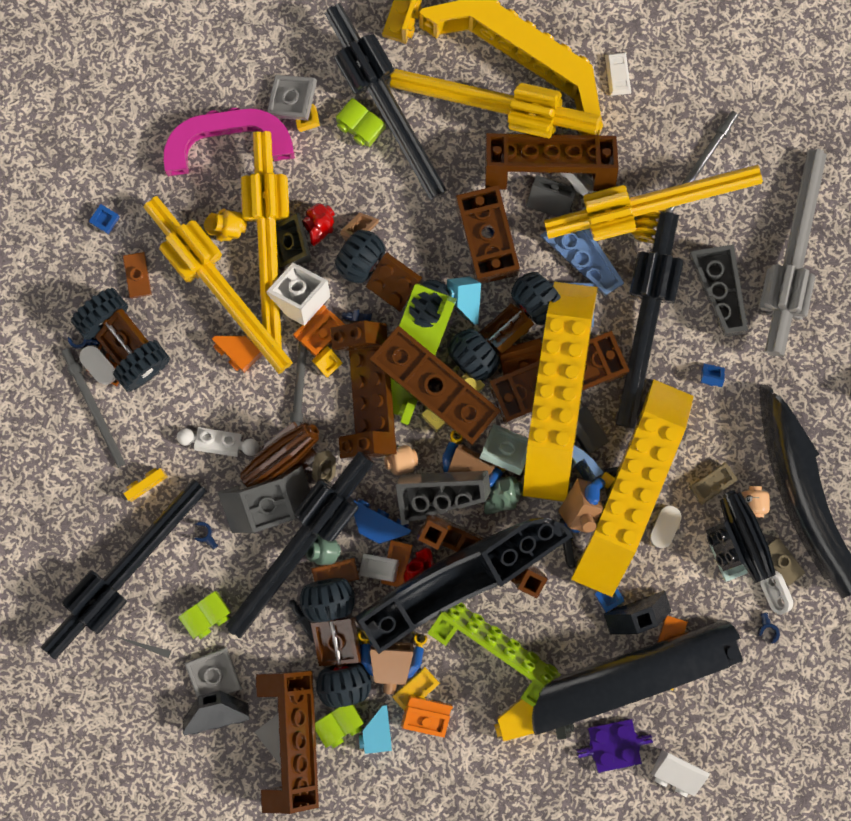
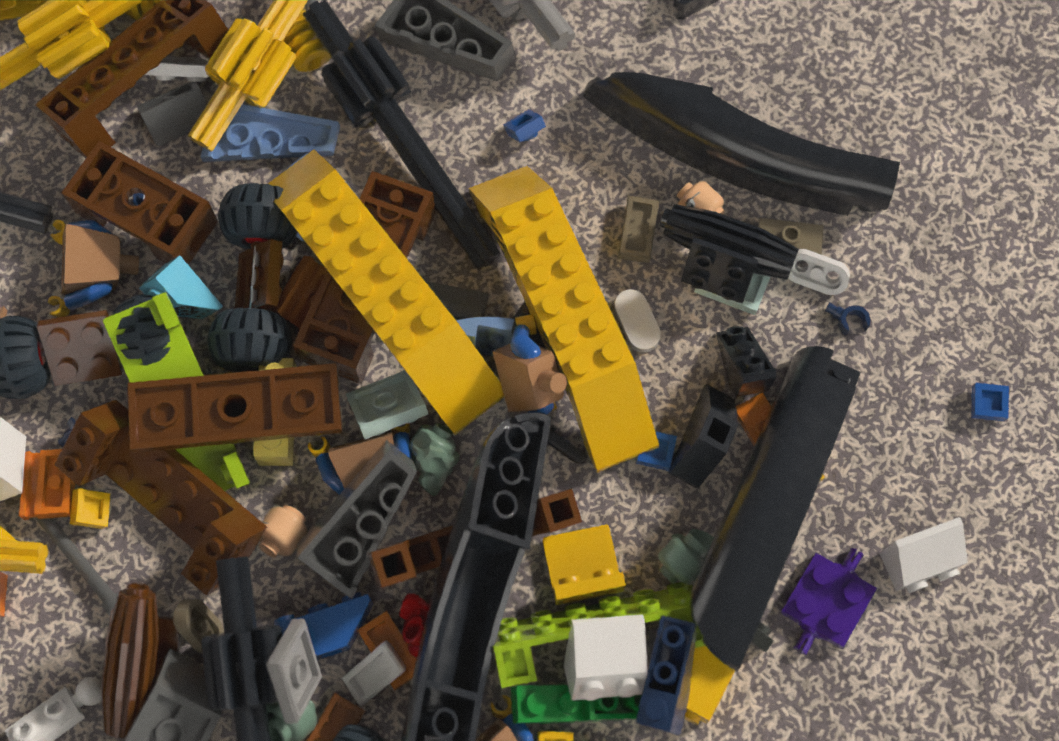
camera: 45 degrees left, 10 degrees down
(346, 534) = (294, 670): none -> light grey tile
(437, 238) = (88, 264): none -> medium nougat torso
(456, 675) = (554, 706): none -> green slope
(485, 668) = (606, 657): none -> white slope
(504, 705) = (668, 677): none -> dark blue slope
(520, 615) = (582, 565): none -> yellow bracket
(569, 659) = (684, 556): none -> sand green head
(694, 599) = (745, 362): none -> black slope
(790, 737) = (990, 402): none -> blue plate

